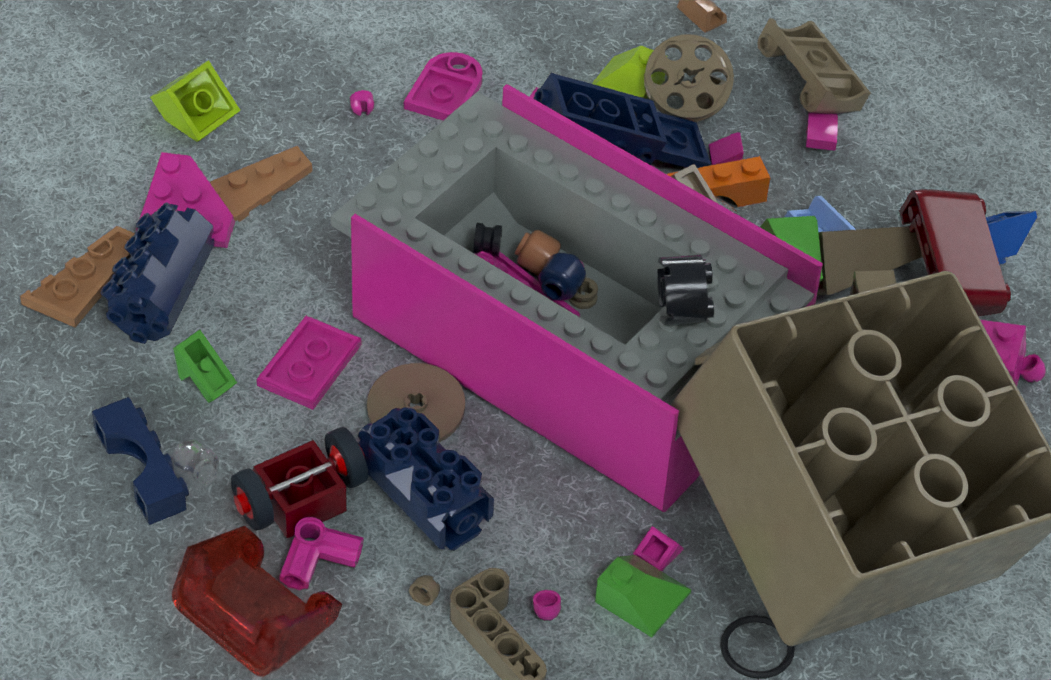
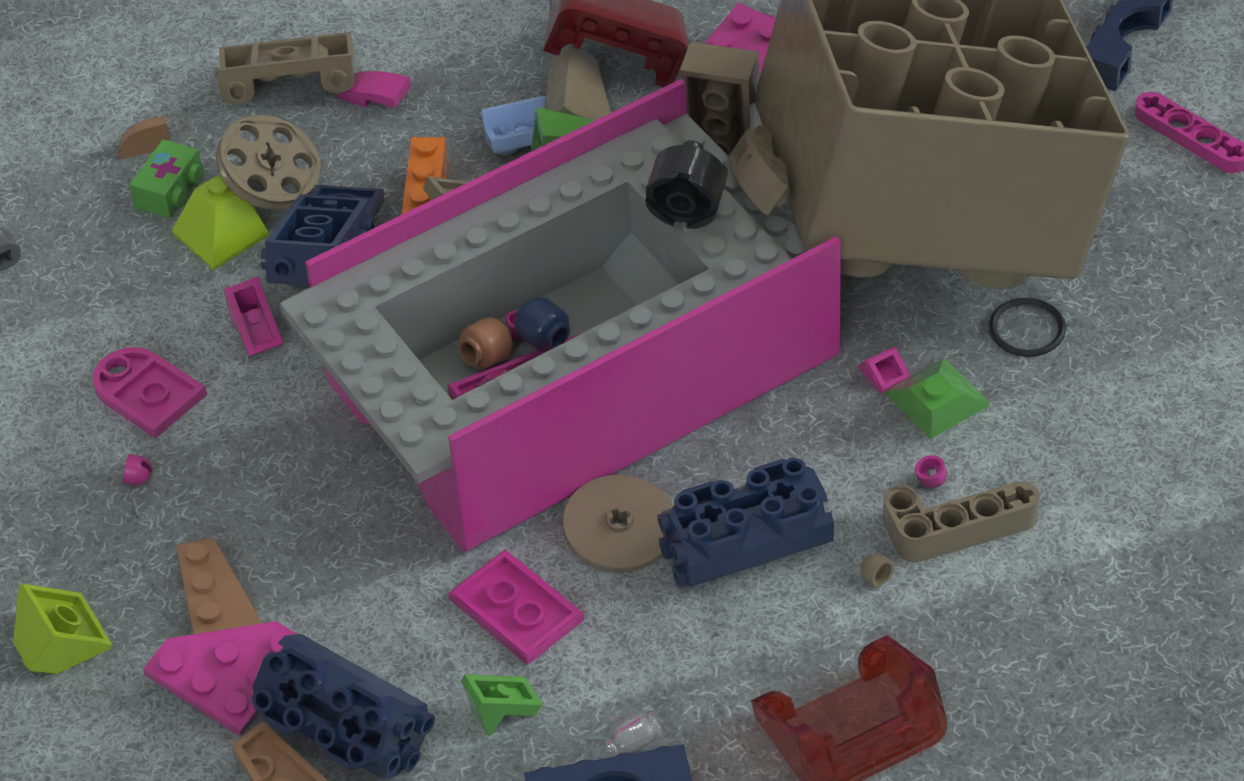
camera: 65 degrees left, 0 degrees up
(301, 483) = (712, 632): brick -> none
(304, 554) = (788, 653): dark pink piece -> none
(487, 239) = (458, 374): black wheel -> none
(655, 27) = (166, 178): none -> bright green brick
(726, 149) = (369, 170): dark pink slope -> none

